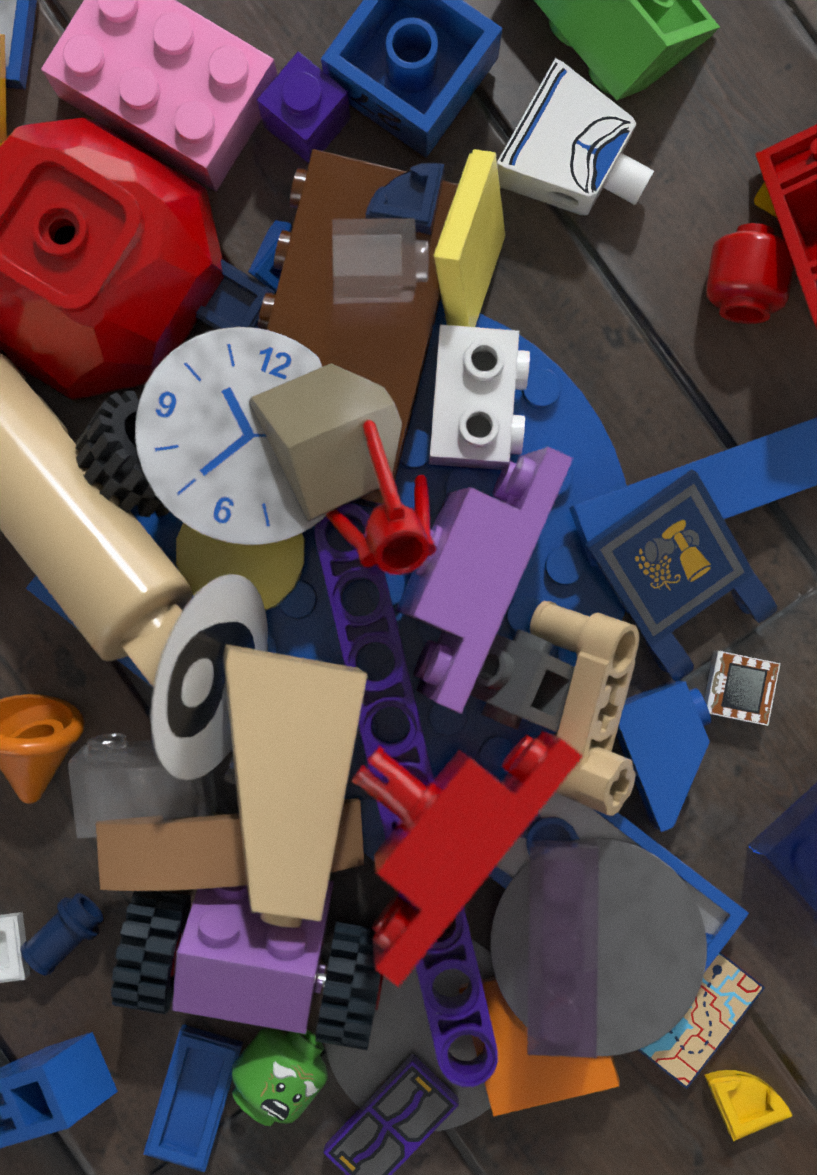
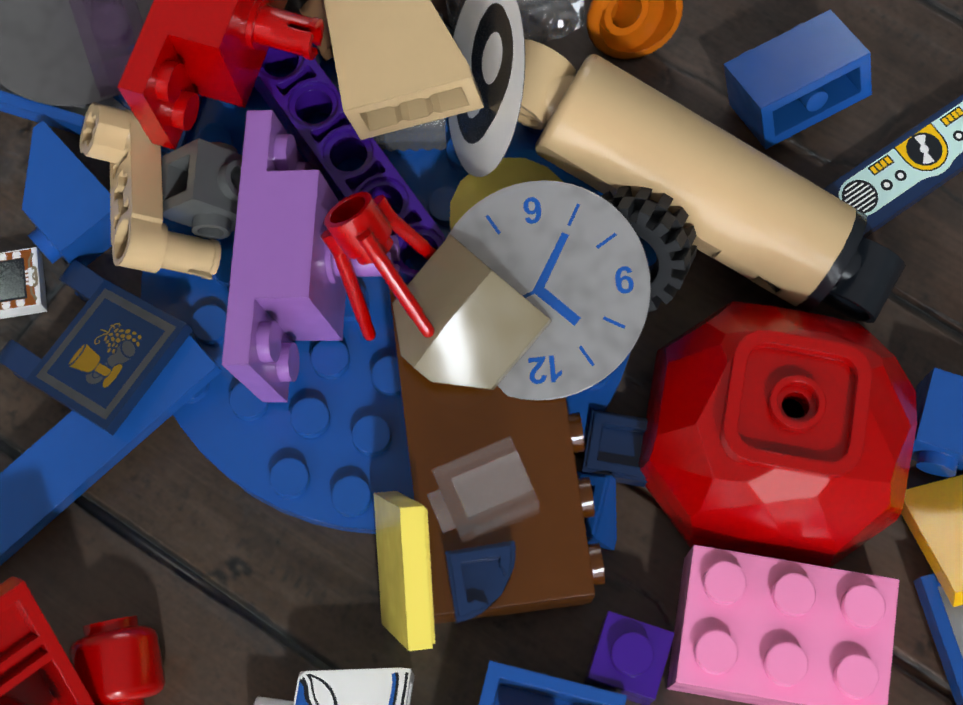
camera: 160 degrees right, 15 degrees down
(476, 397) = (344, 426): white brick -> none

